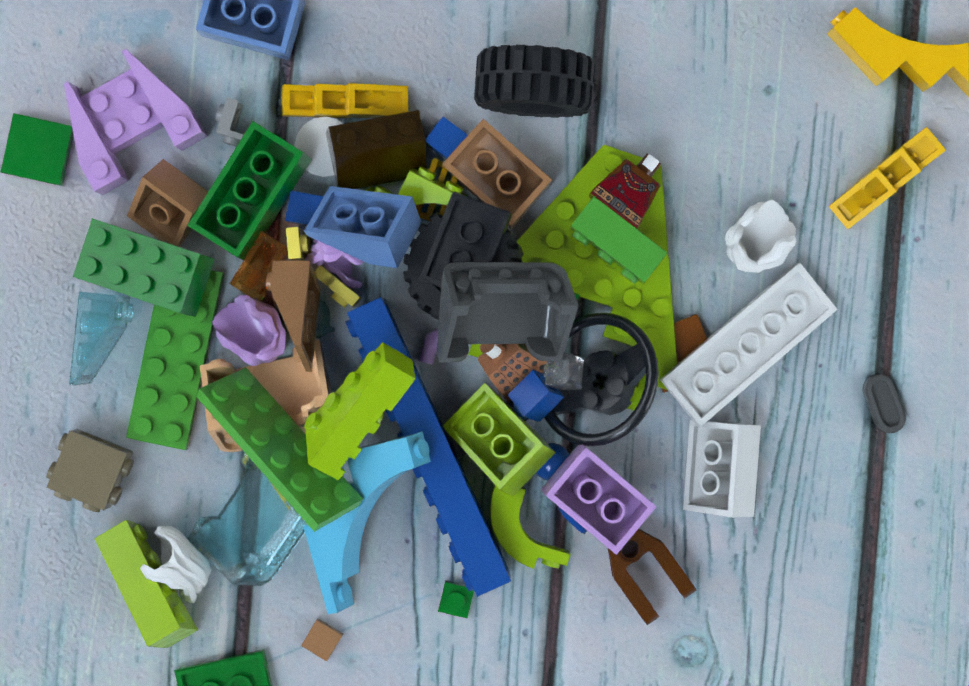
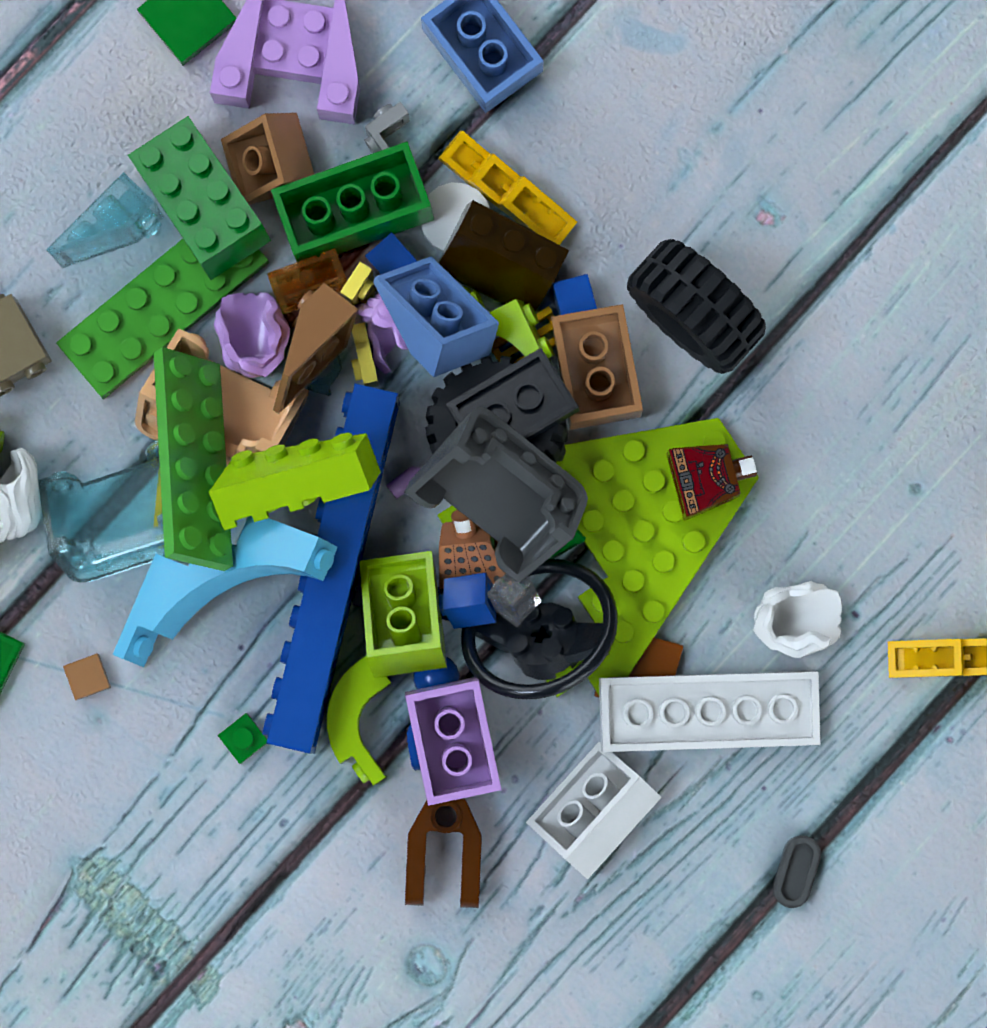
camera: 35 degrees right, 5 degrees down
(617, 241) = (659, 516): bright green brick -> none

